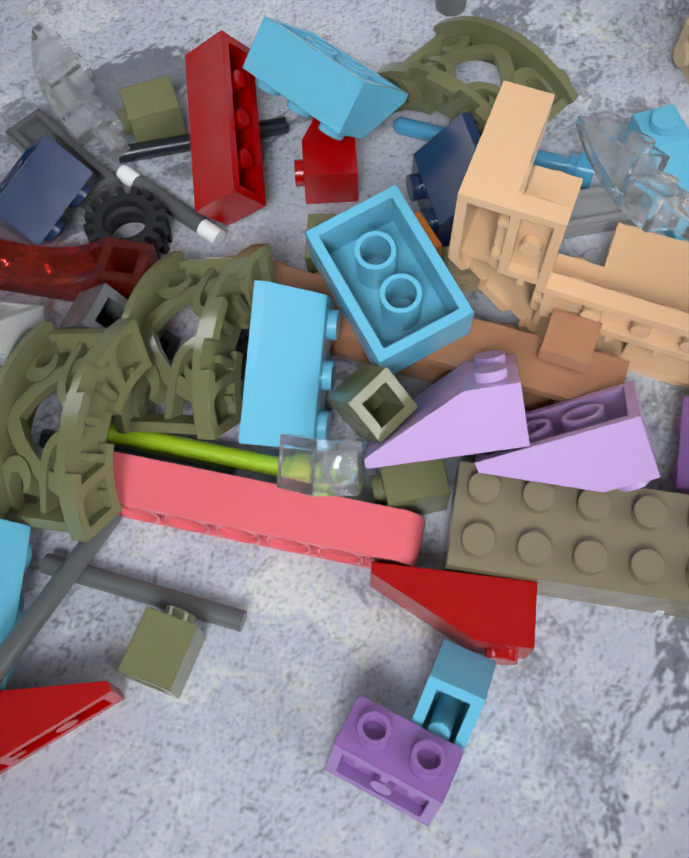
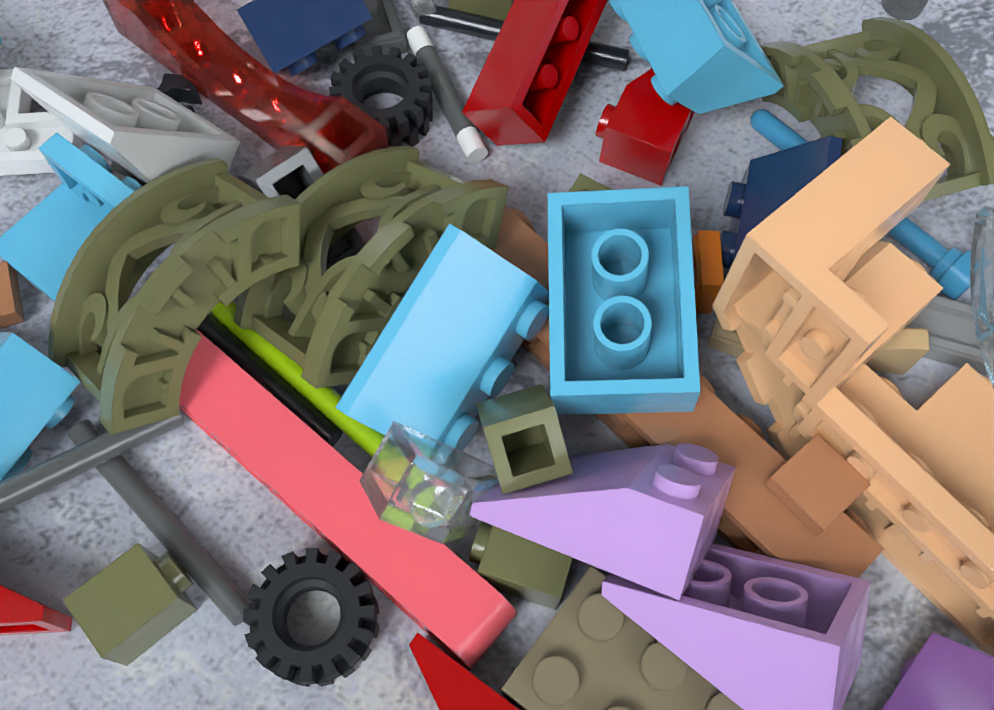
camera: 25 degrees right, 0 degrees up
(284, 564) = (270, 609): none -> black tyre
(575, 235) = (901, 352): none -> tan tile

